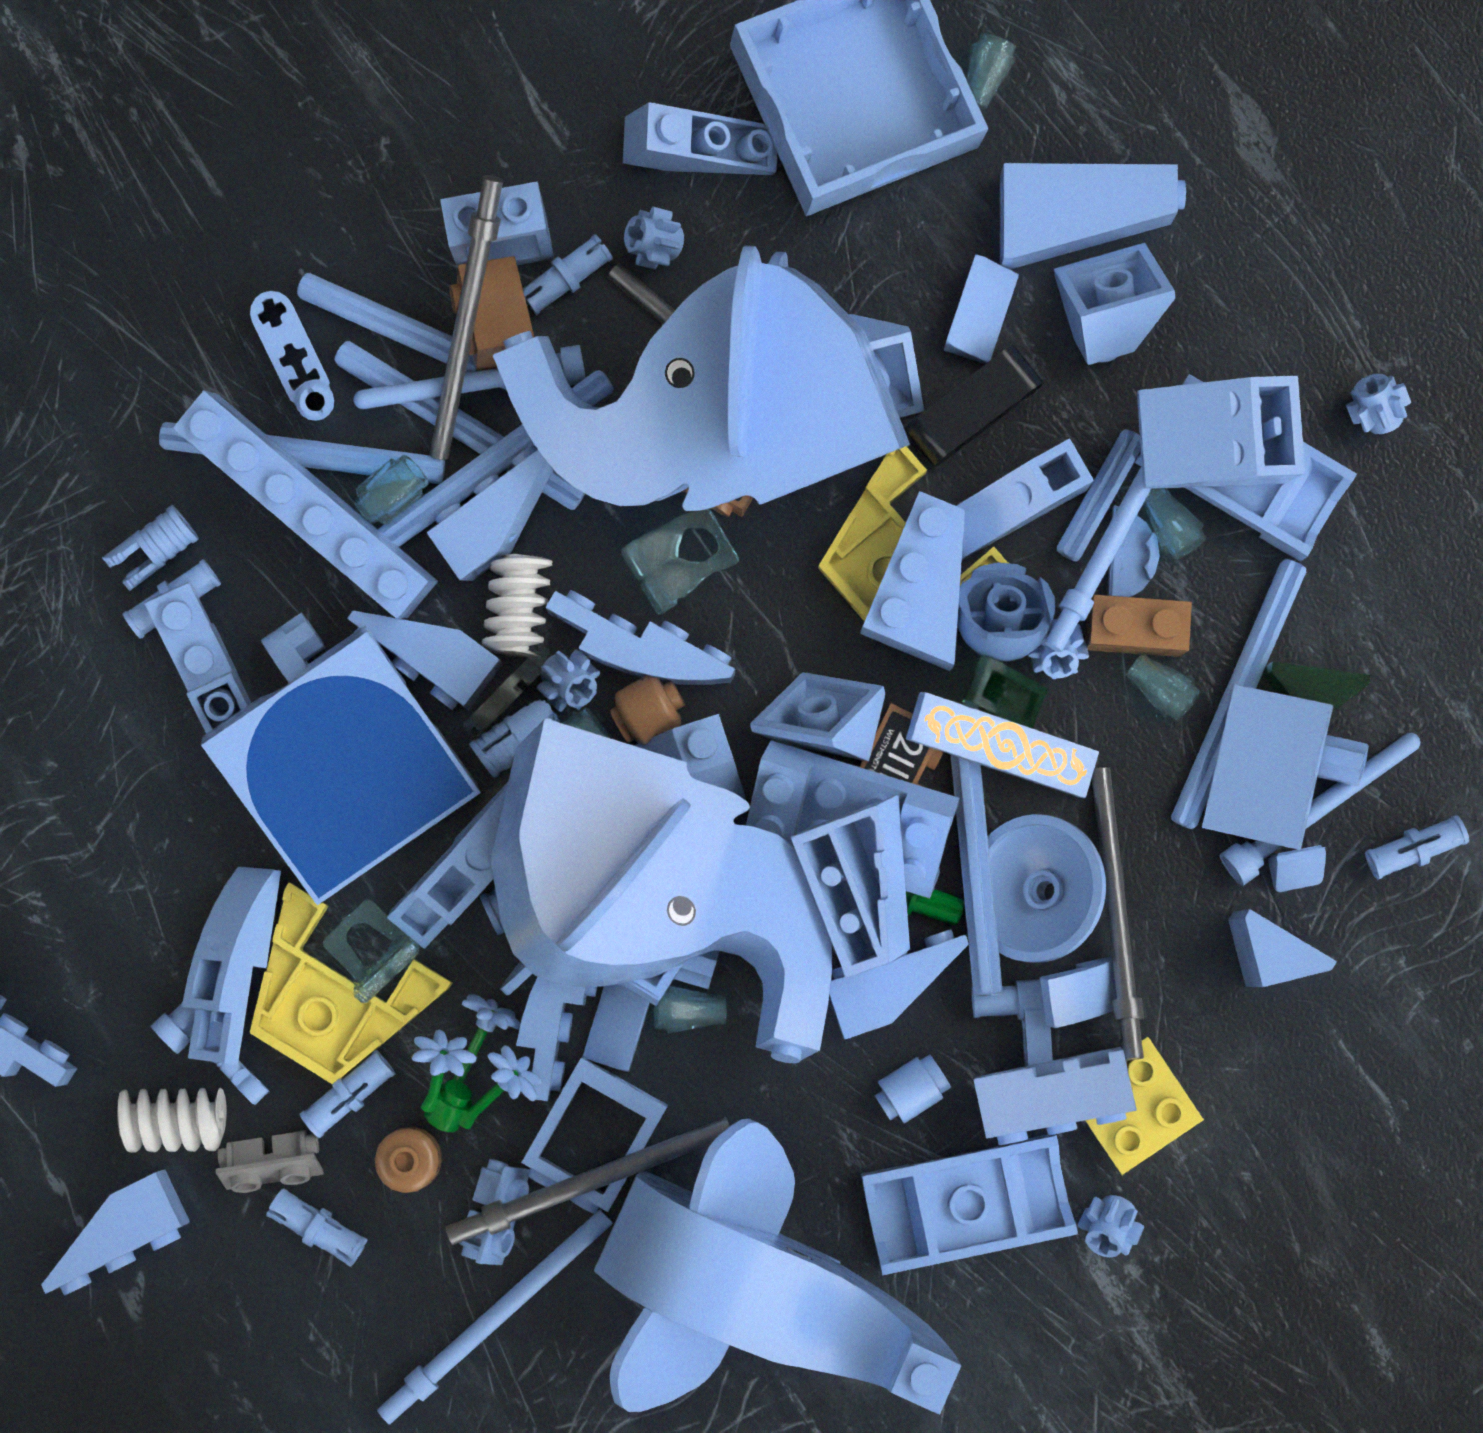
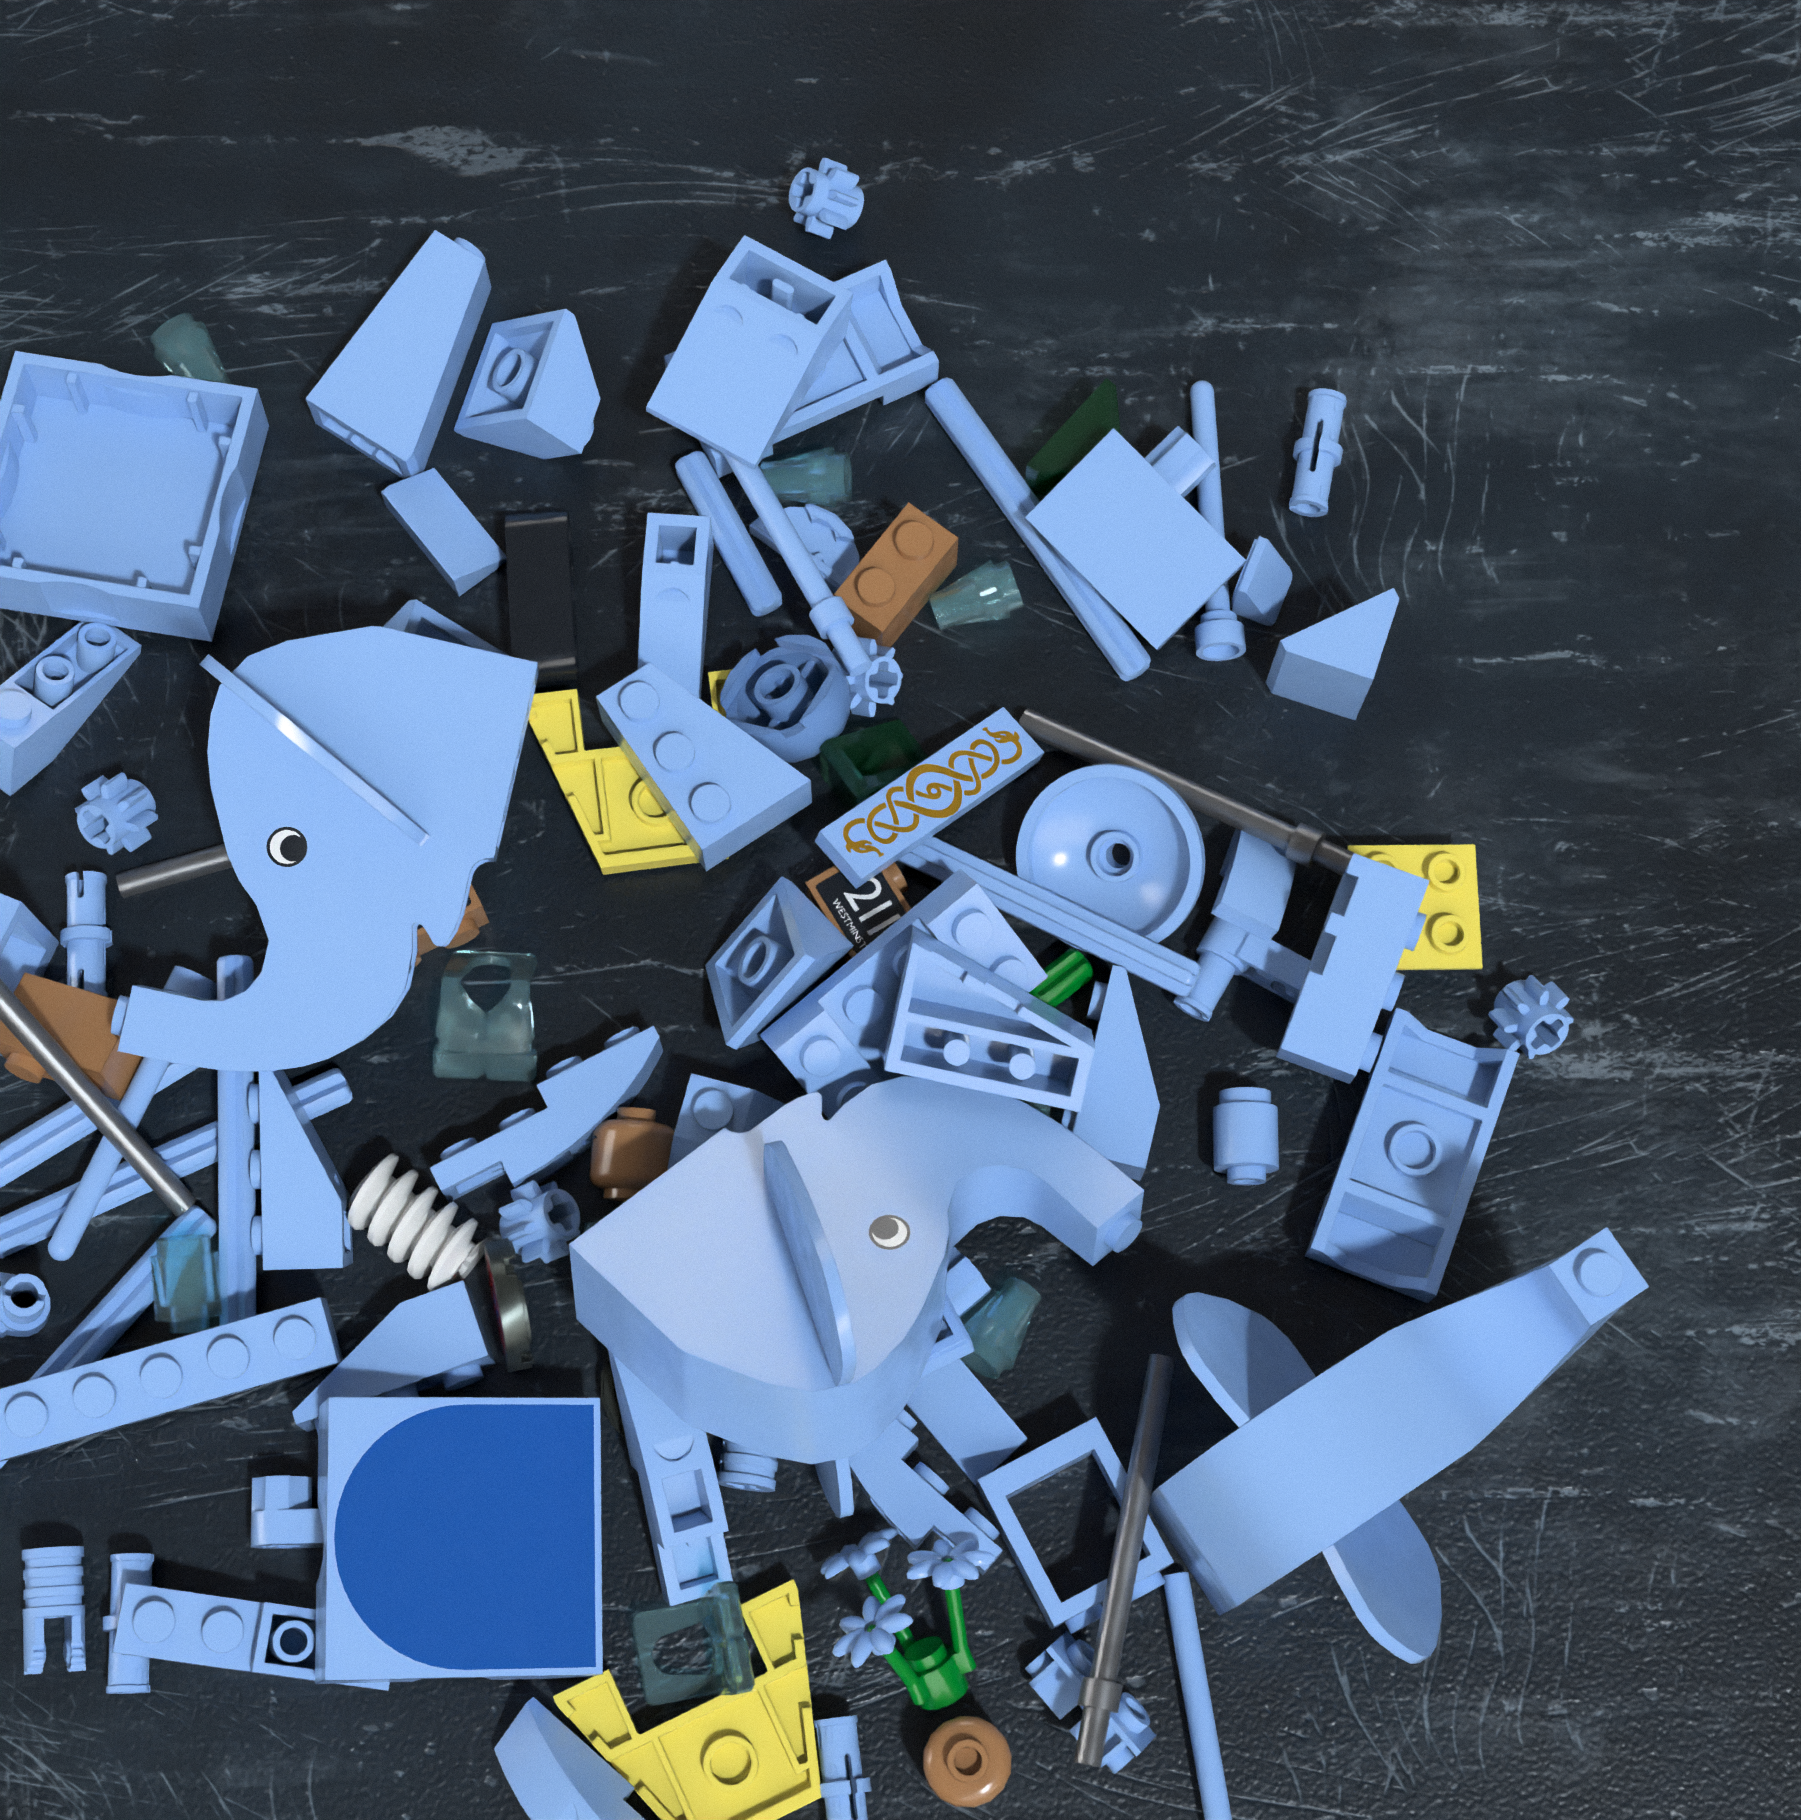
camera: 60 degrees left, 10 degrees down
(499, 744) = (560, 1340): light blue hinge -> none

